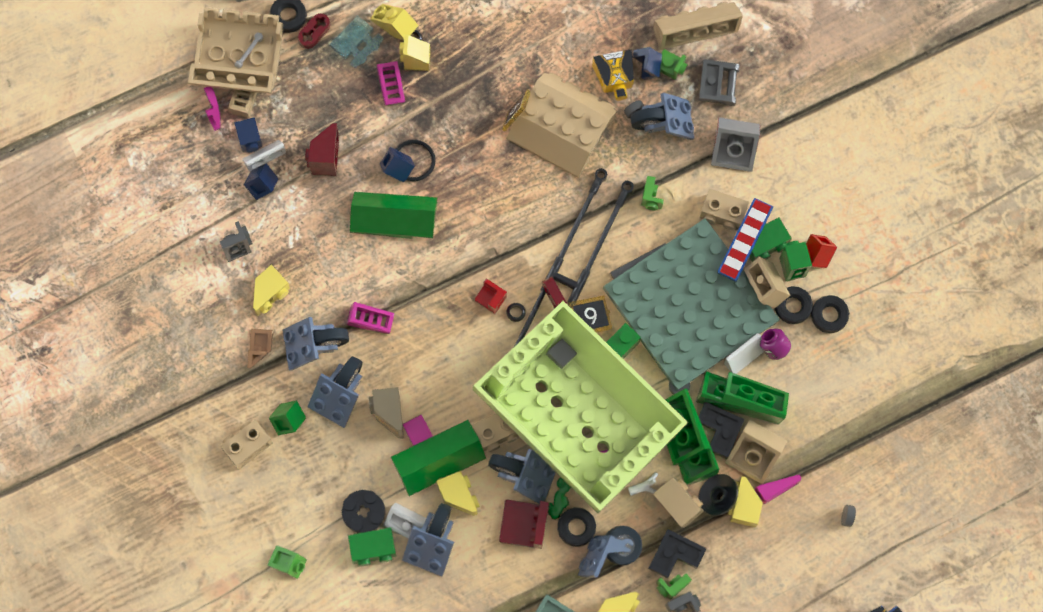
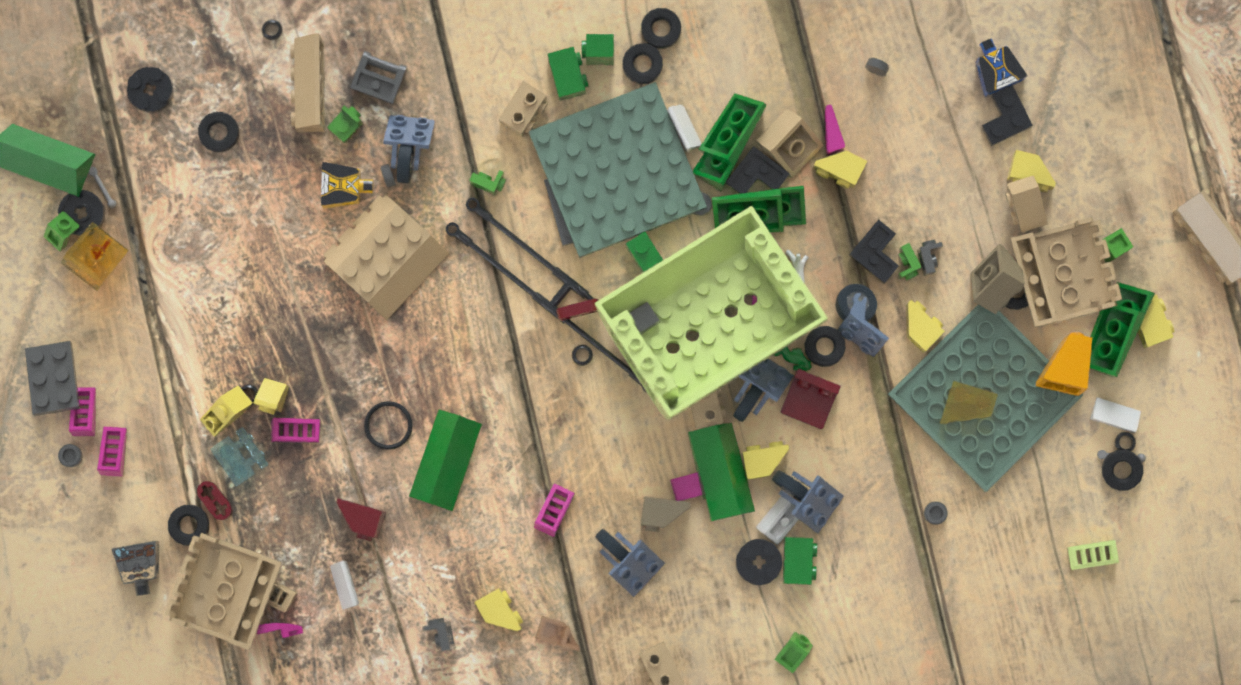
camera: 70 degrees left, 10 degrees up
(248, 135) = (320, 596): dark blue brick -> none
(258, 38) = (210, 562): light grey hinge -> none
(261, 181) = (375, 594): dark blue panel -> none
(287, 418) = (642, 620): green panel -> none
(306, 341) = (568, 588): sand blue plate -> none
(397, 164) = (391, 444): dark blue panel -> none
(491, 296) = (560, 377): red panel -> none
(516, 110) = (363, 302): clear yellow piece -> none
(593, 313) = (603, 276): piece -> none
(651, 62) = (341, 145): dark blue panel -> none
(679, 502) = (824, 235): tan brick -> none
(713, 490) = (820, 199): black dish -> none
(735, 144) = (453, 77): light grey slope -> none
(745, 239) = (565, 95): tile -> none
(767, 282) = (615, 85): tan brick -> none
(775, 344) = (682, 93): magenta head -> none
(820, 250) = (590, 20): red panel -> none

